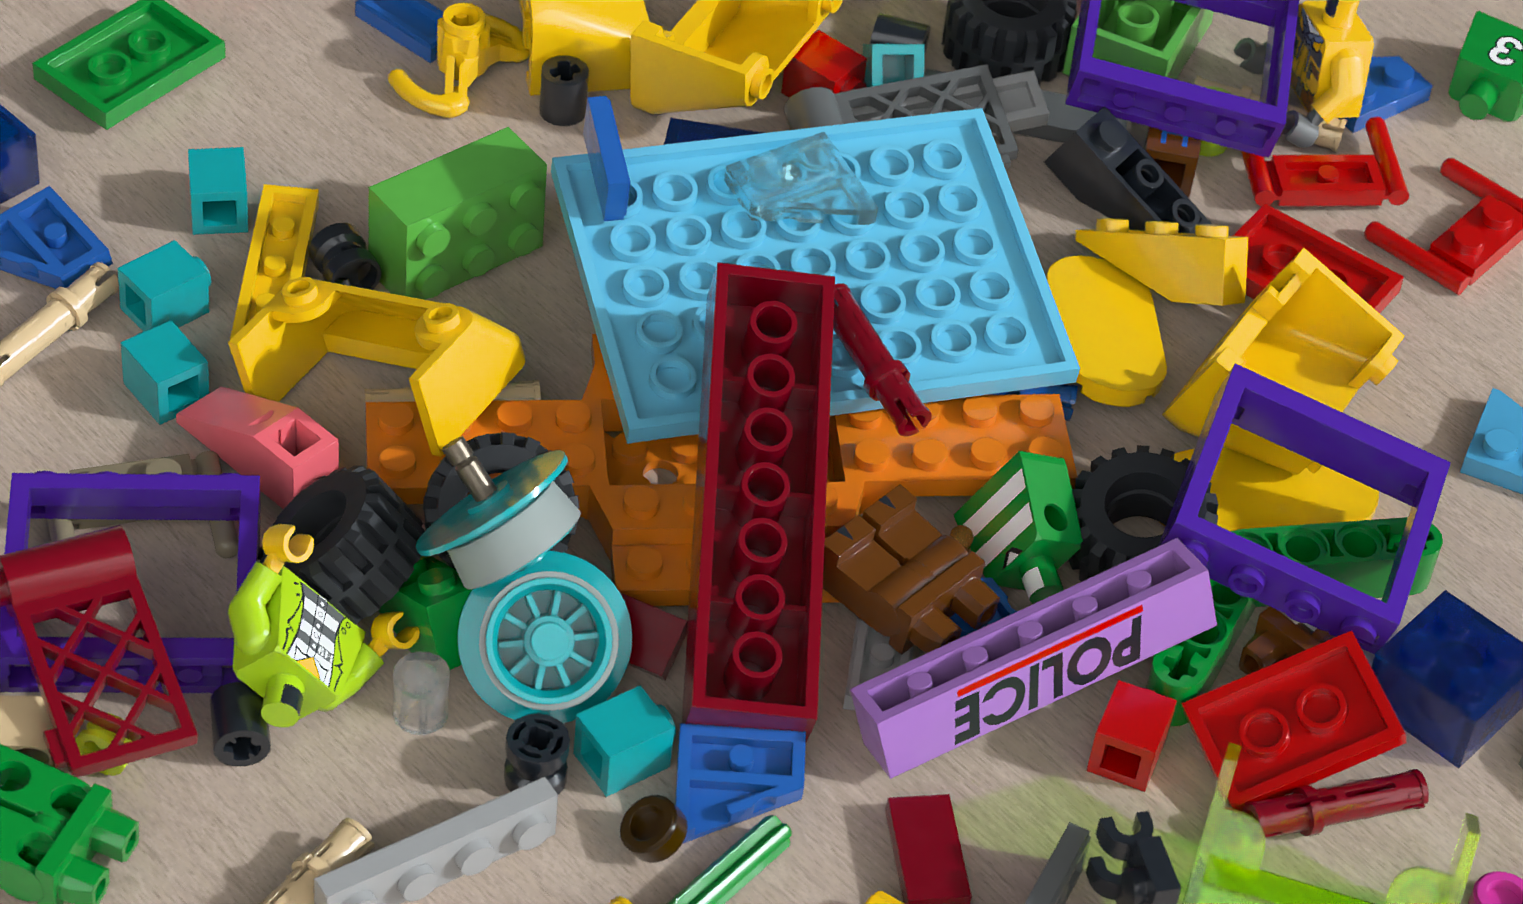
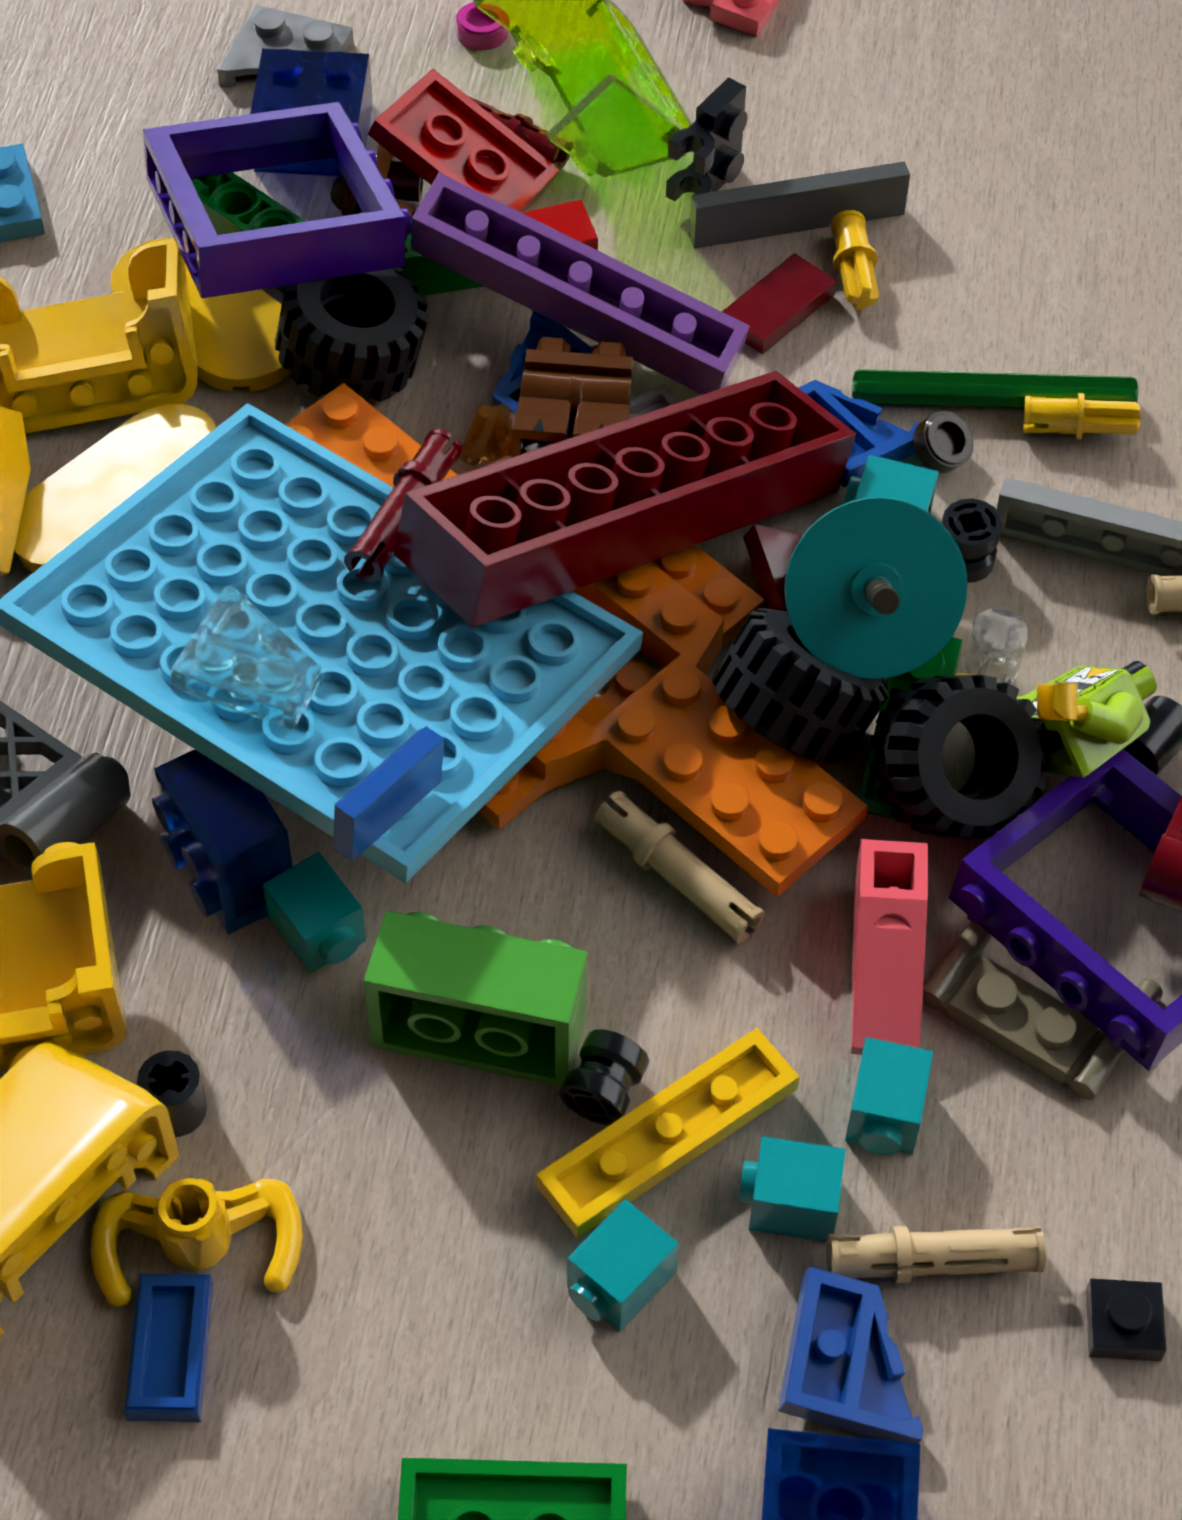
camera: 125 degrees left, 10 degrees up
(456, 352) = (670, 937): yellow windscreen -> none
(1025, 524) = (433, 381): green torso -> none

